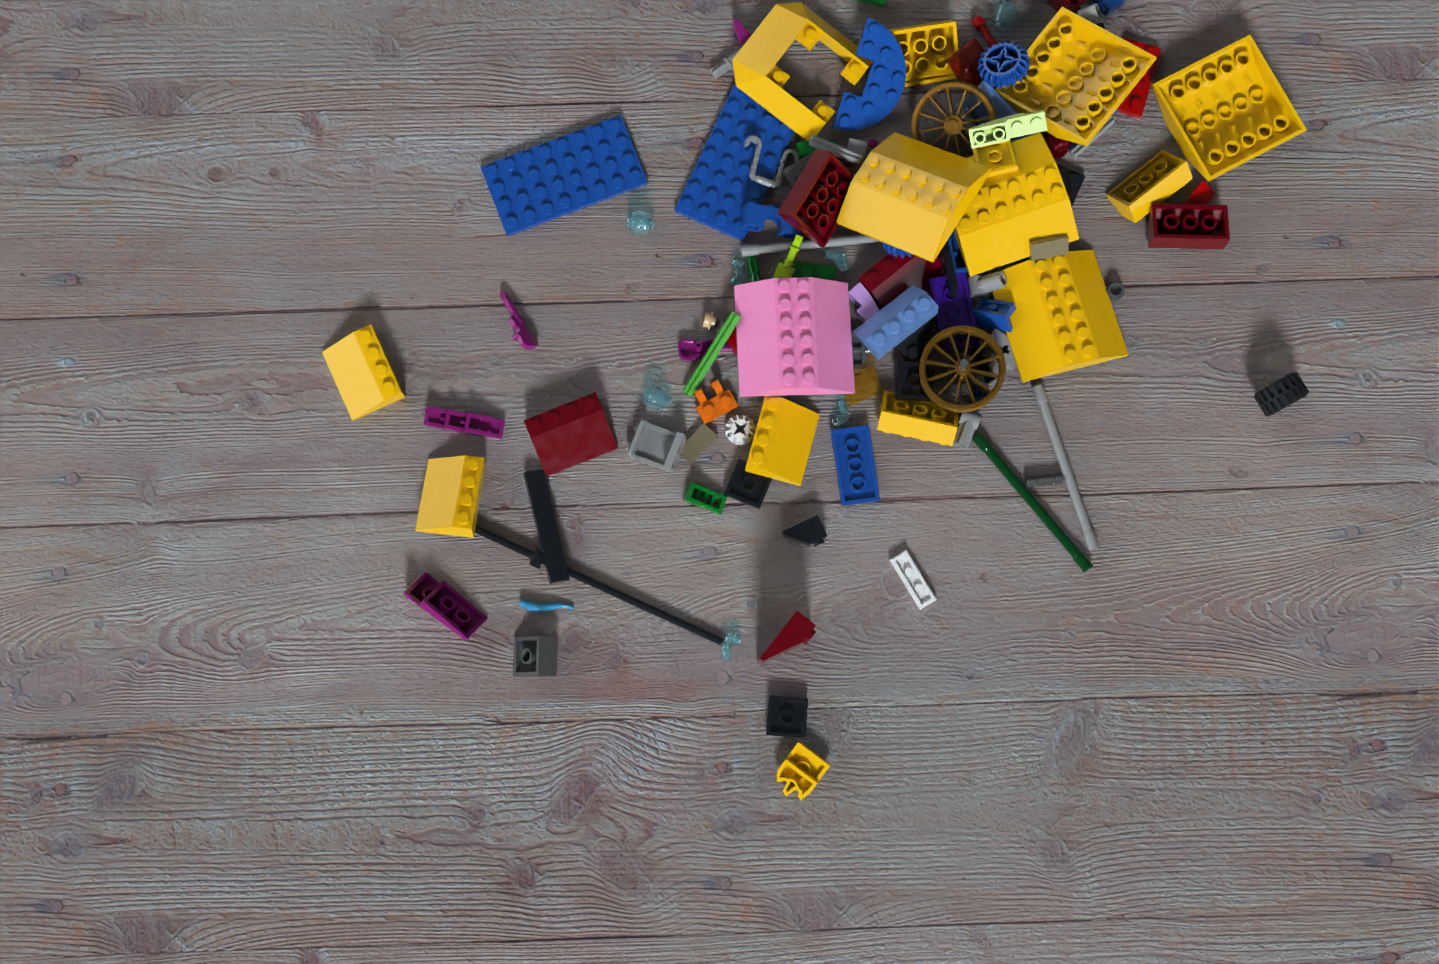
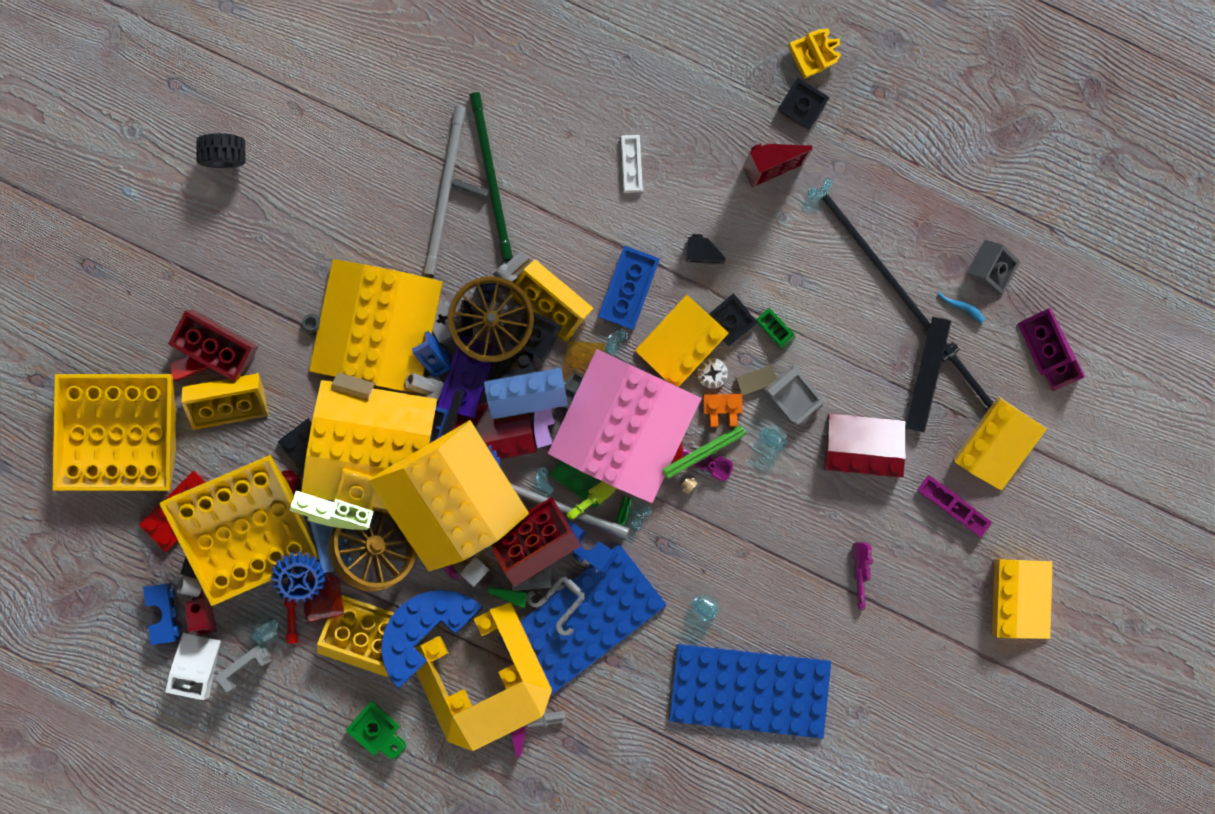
camera: 155 degrees left, 5 degrees up
(837, 150) = (493, 580): light grey axle -> none

